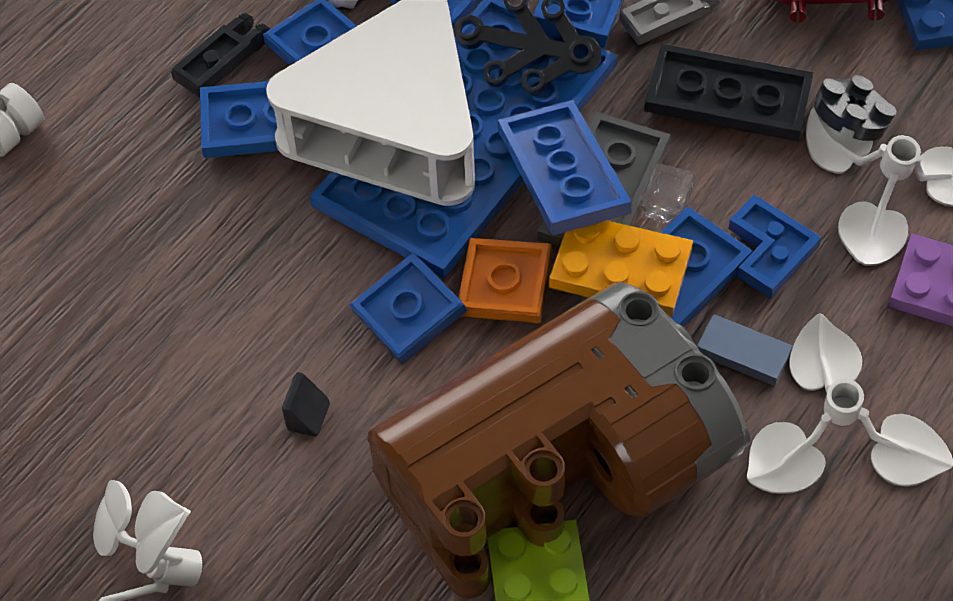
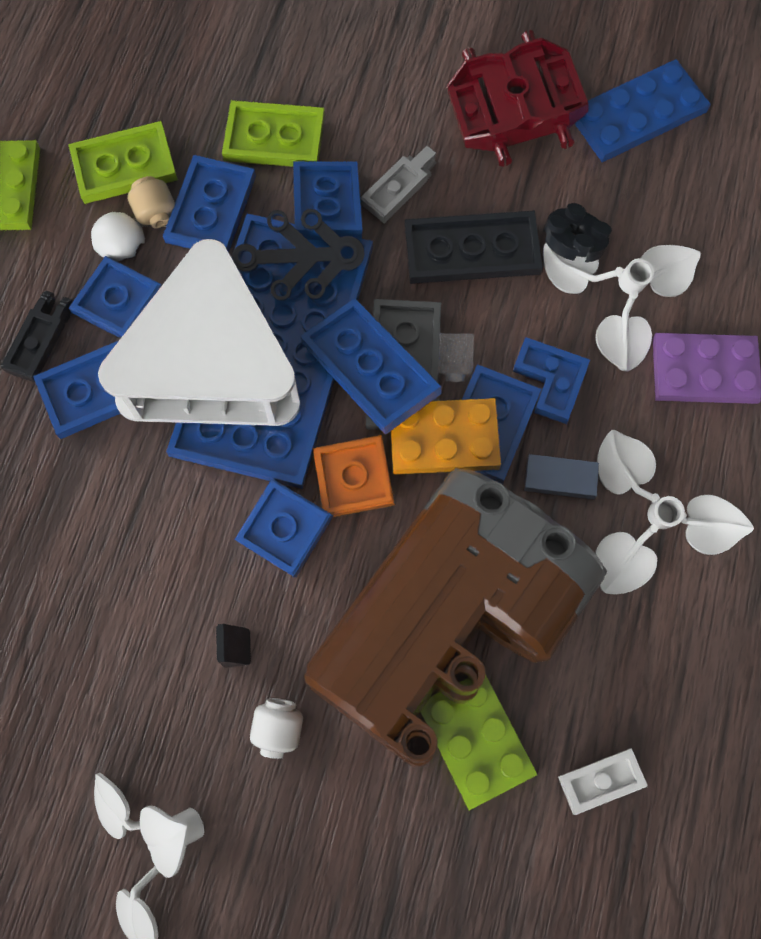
camera: 20 degrees left, 15 degrees up
(319, 499) = (276, 727): none -> white head

